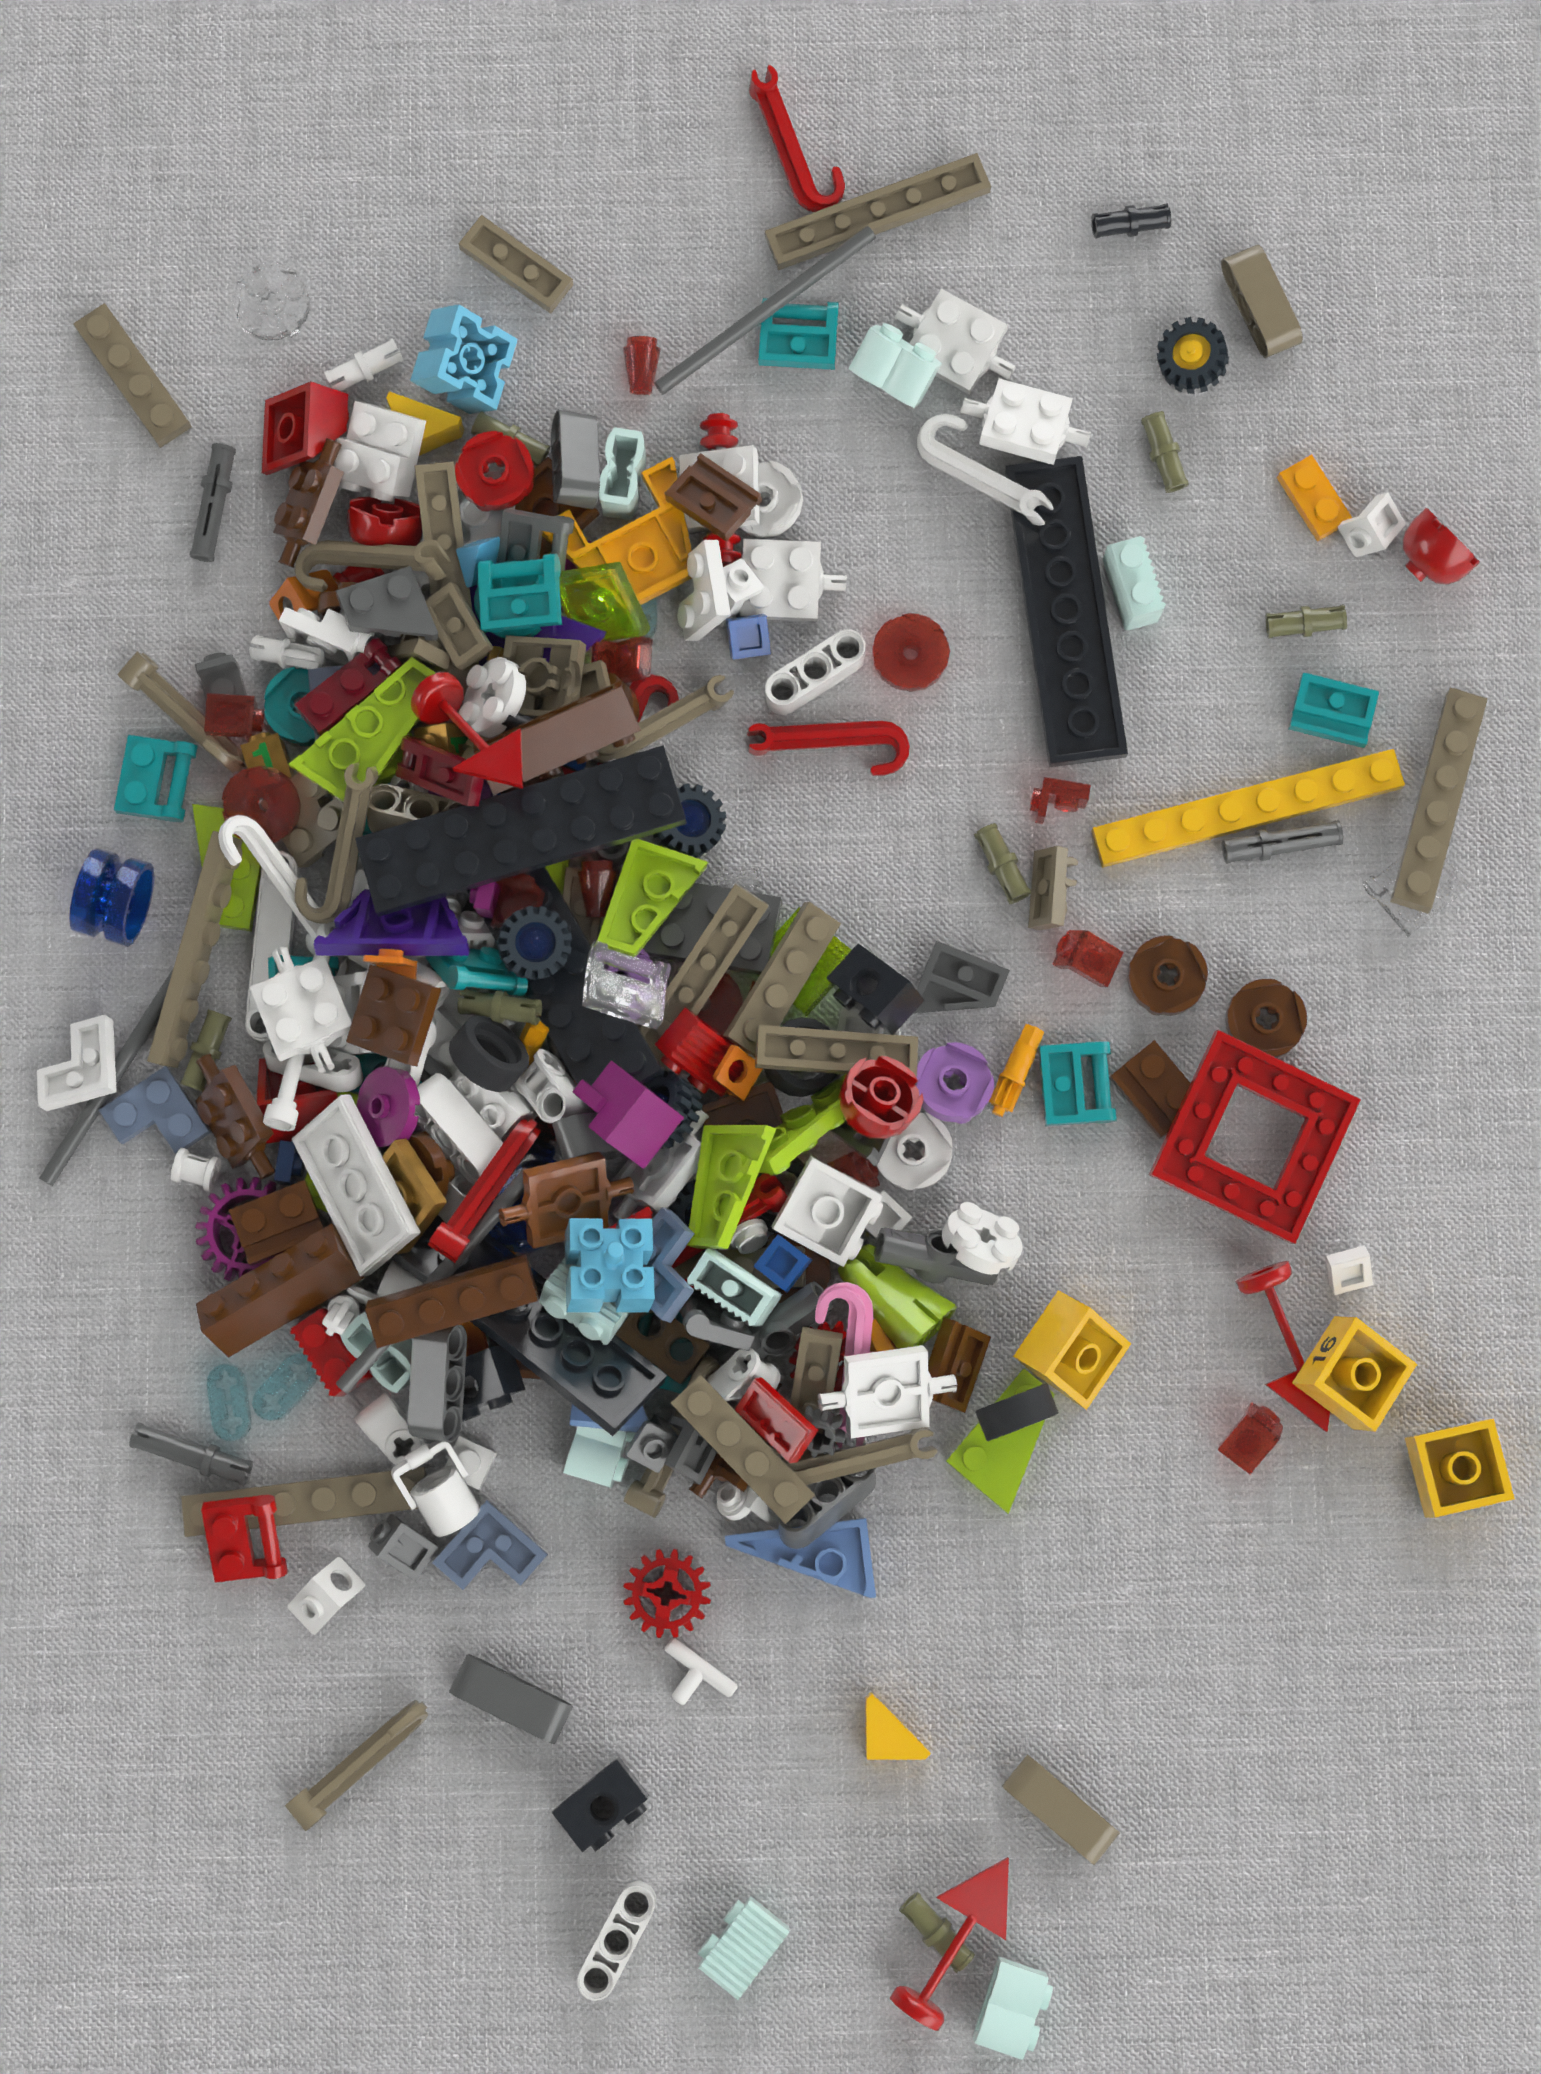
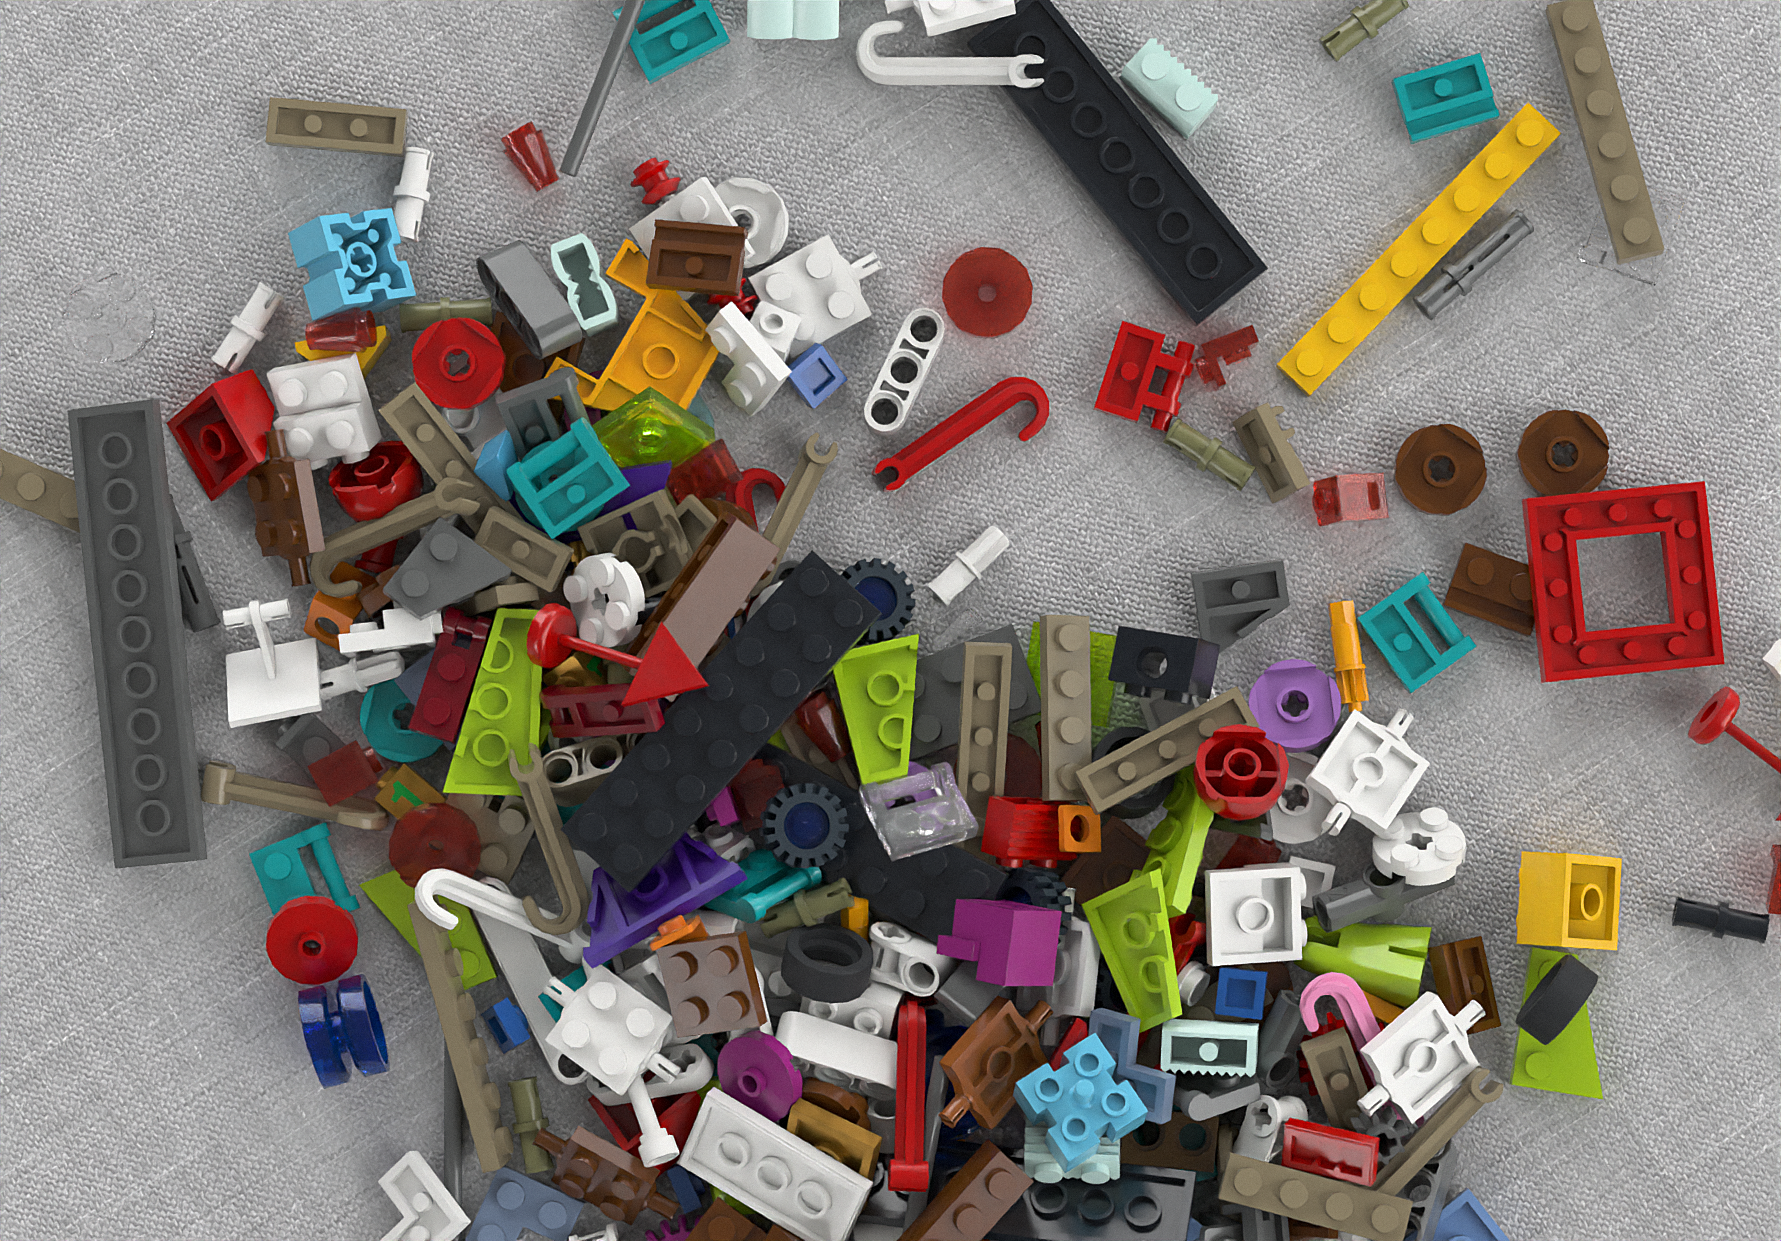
camera: 30 degrees left, 5 degrees up
(146, 530) = (137, 634): none -> dark grey plate
(148, 812) = (316, 920): none -> red plate
(222, 618) = (273, 678): none -> white plate
(234, 967) = (507, 1024): none -> blue plate
(427, 401) = (344, 332): none -> clear red cone
(540, 341) = (412, 193): none -> white pin
(777, 838) = (969, 564): none -> white axle
(977, 1161) = (1367, 772): none -> white plate
(980, 770) = (1130, 373): none -> red plate
(1178, 1433) = (1720, 920): none -> black pin

